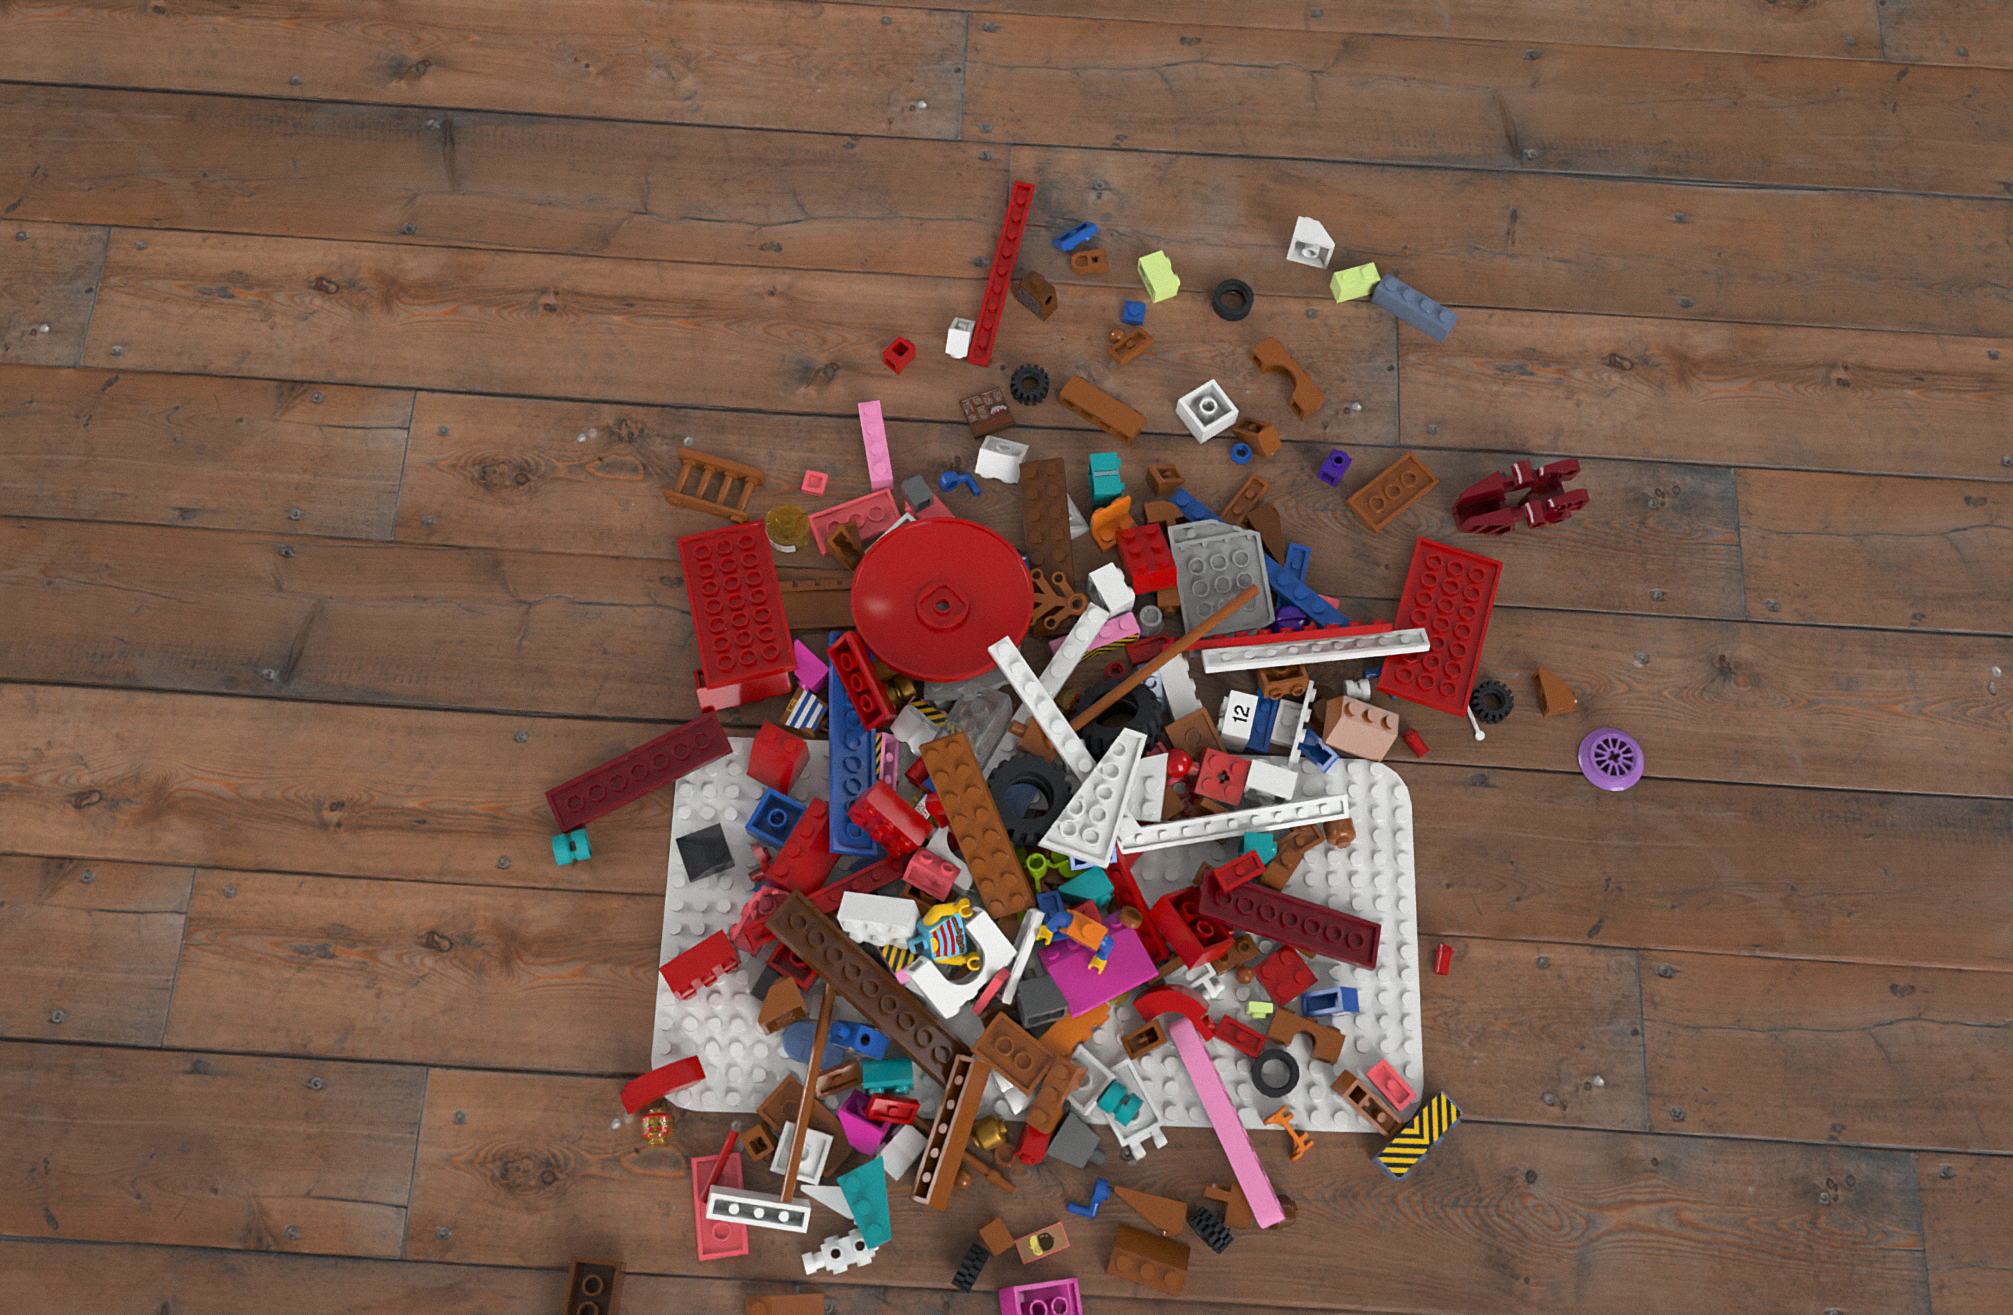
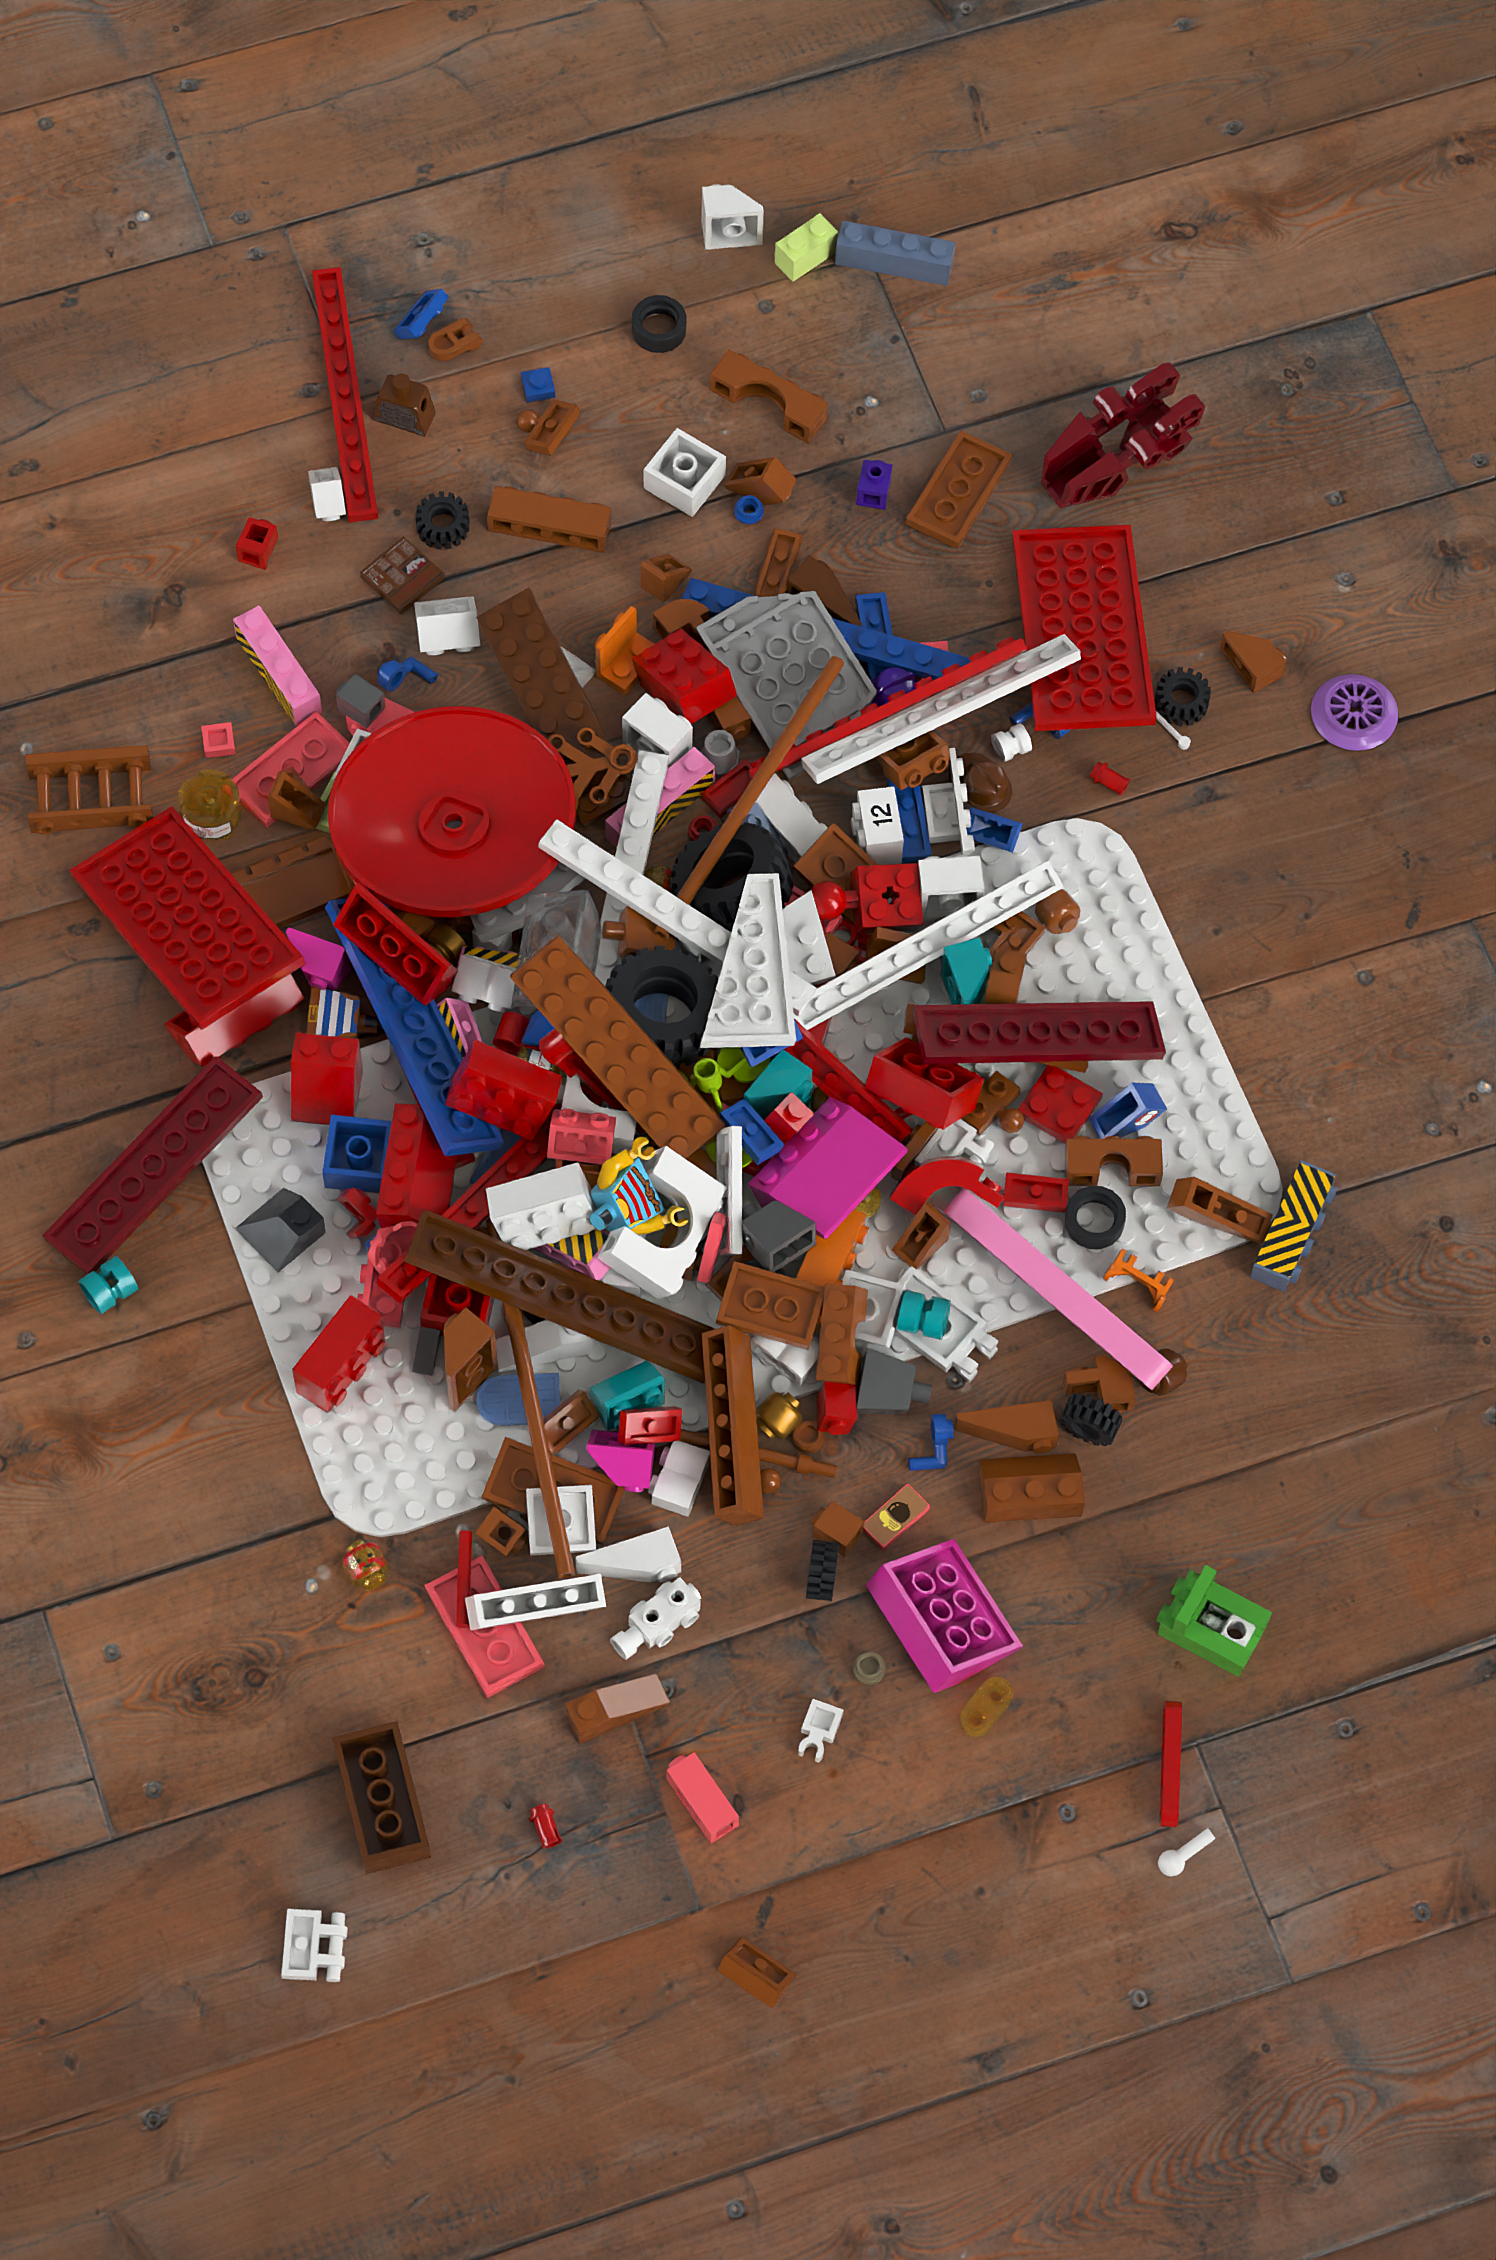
camera: 20 degrees left, 5 degrees down
(661, 1082) = (347, 1508): red arch -> none
(847, 1037) = (574, 1363): blue torso -> none
(868, 1201) = (667, 1538): teal wedge -> none
(1083, 931) = (798, 1126): torso -> none
(1104, 479) = (590, 600): teal container -> none
(1130, 917) = (846, 1098): dark orange tile -> none
(1158, 276) = (550, 327): yellowish green brick -> none
(1239, 871) = (956, 992): red plate -> none
(1258, 1010) = (1045, 1152): yellowish green plate -> none
(1359, 728) = (1033, 782): slope -> none
(1390, 1085) = (1238, 1178): coral plate -> none
(1443, 959) = (1243, 1015): red pin -> none

